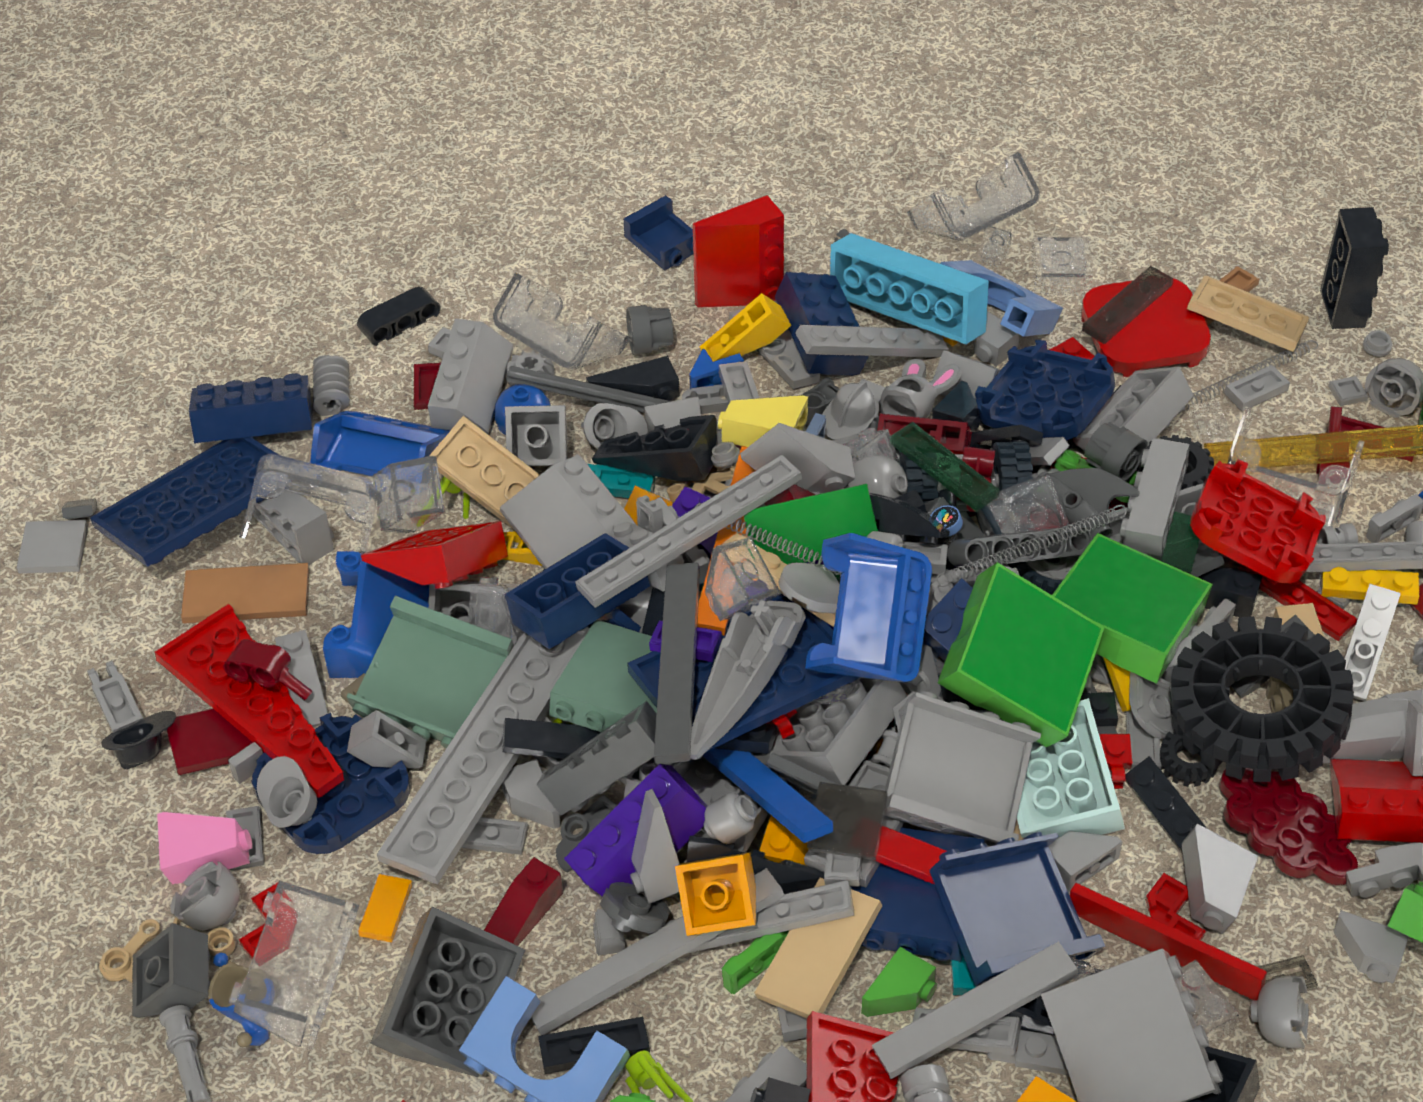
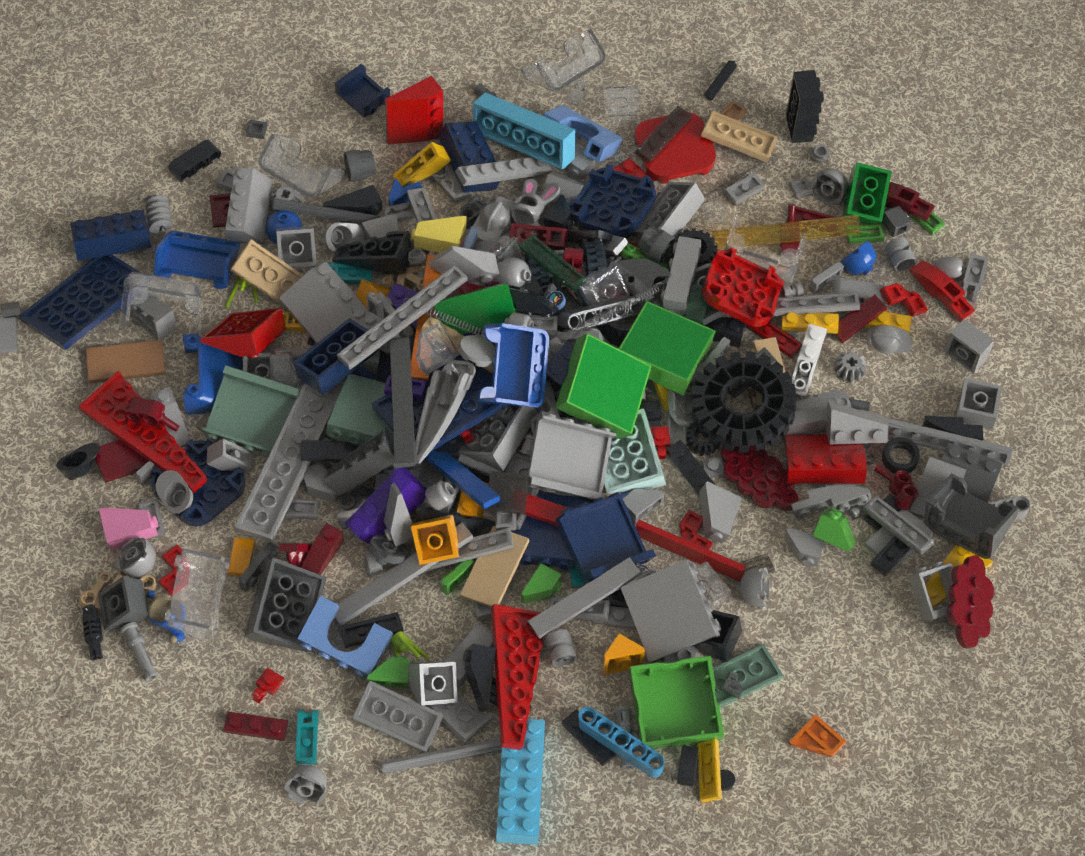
camera: 10 degrees left, 10 degrees up
(112, 1018) = (92, 631): none -> black hinge
(115, 698) = (57, 436): light grey hinge -> none
(395, 939) = (250, 576): none -> dark grey hinge
(408, 494) = (221, 292): clear slope -> none
(475, 902) = (295, 552): none -> dark red tile
(497, 279) = (256, 129): none -> dark grey tile
(1207, 805) = (713, 467): none -> light grey plate
(1217, 239) = (720, 80): none -> black axle

